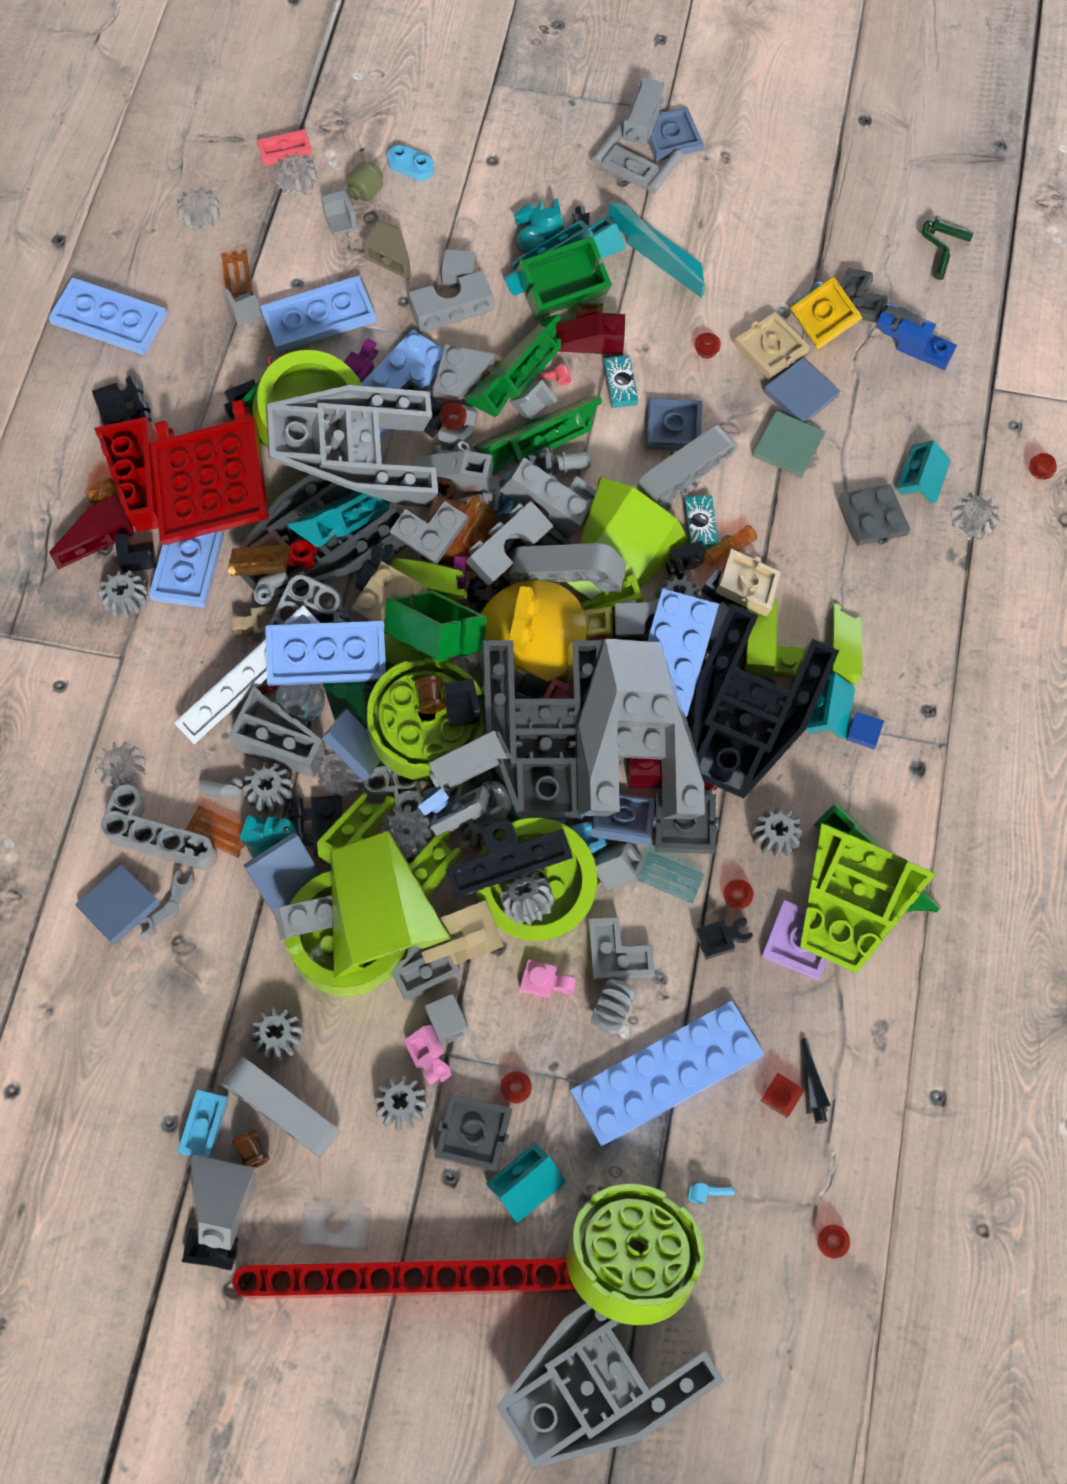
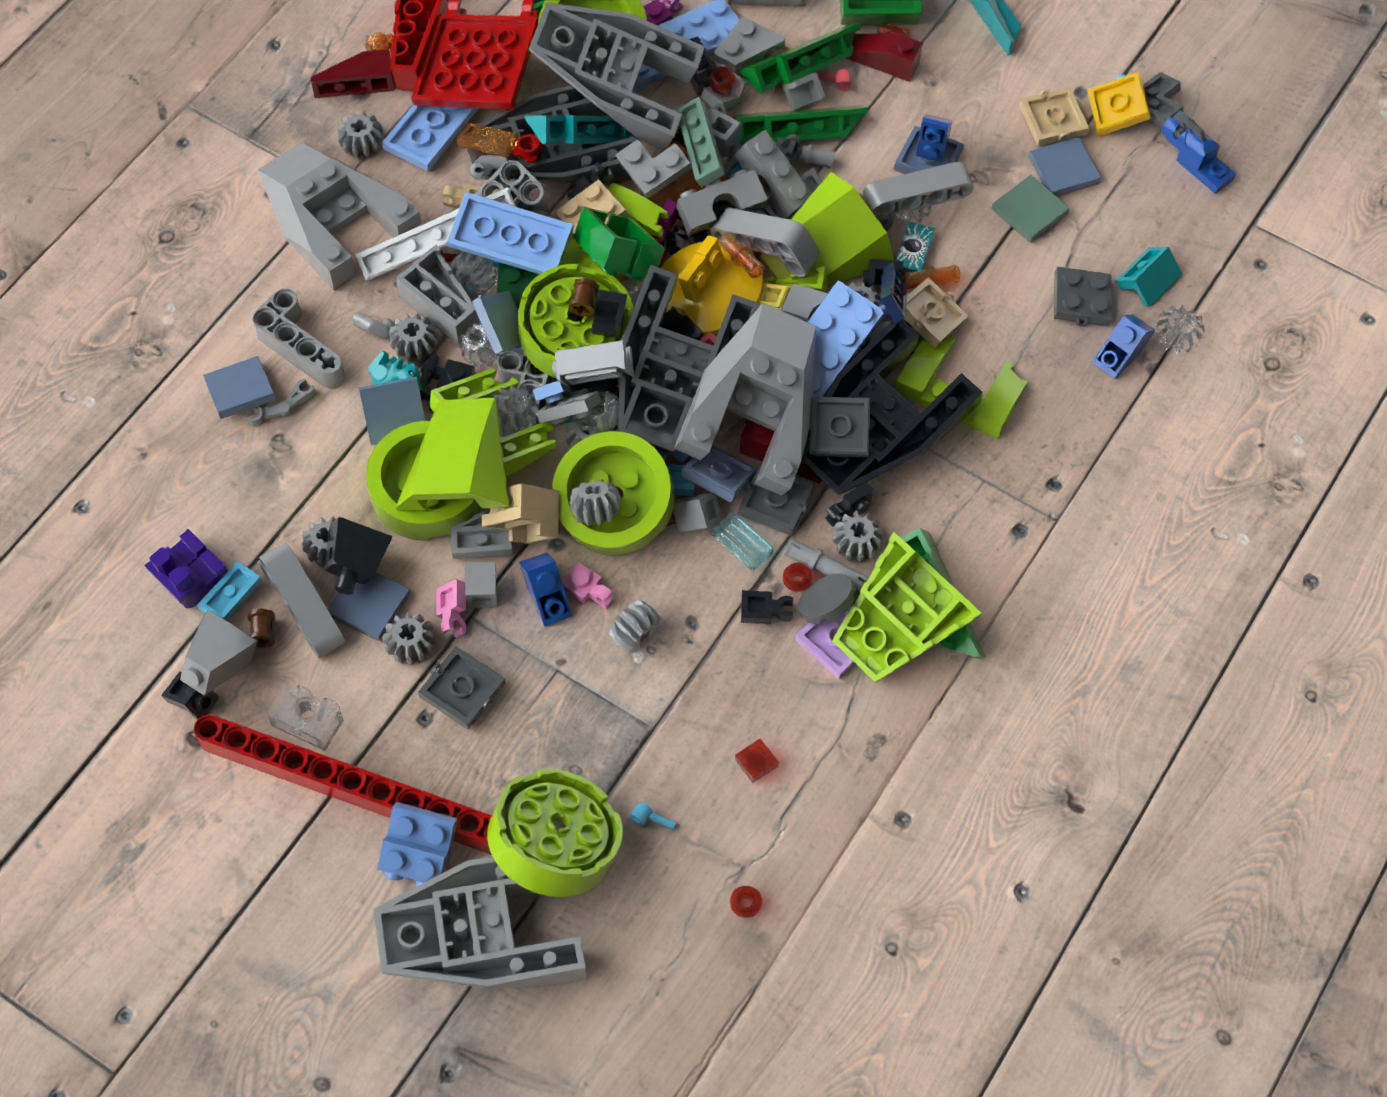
camera: 20 degrees right, 5 degrees down
(111, 672) = (320, 197): none -> light grey wedge
(125, 756) = (294, 274): clear gear -> none
(134, 556) = (385, 108): black panel -> none
(150, 1119) = (186, 569): none -> dark purple hips
(234, 851) = (354, 375): clear orange tile -> none
(304, 917) = (390, 447): light grey plate -> none
(313, 1040) = (354, 553): none -> black torso
(343, 1079) = (370, 605): none -> sand blue tile
(466, 490) = (700, 142): none -> sand green plate
(505, 1318) = (416, 844): none -> medium blue plate
(507, 858) = (591, 458): black plate -> none
(509, 998) = (546, 588): none -> blue slope
(516, 1077) = (514, 657): clear red plate -> none
(526, 1182) = (490, 747): teal panel -> none
(555, 592) = (741, 255): none -> clear orange pin
(612, 959) = (655, 588): light grey plate -> none
(620, 381) = (895, 103): tile -> none
(666, 1073) = (660, 704): light blue plate -> none
(676, 405) = (933, 137): none -> blue slope
(704, 350) = (992, 97): clear red plate -> none
(715, 582) = (893, 293): none -> dark blue plate
(721, 732) = (839, 427): none -> dark grey tile
(761, 798) = (857, 499): none -> black plate
(762, 872) = (818, 561): none -> light grey pin
(778, 907) = (827, 598): none -> dark grey tile
(816, 1097) = (787, 775): black piece -> none
(833, 707) = (961, 448): teal panel -> none
(865, 730) = (984, 480): blue tile -> none
(933, 551) = (1123, 345): none -> slope
(948, 229) = (1276, 68): dark green piece -> none
(1046, 461) = (1271, 302): clear red plate -> none

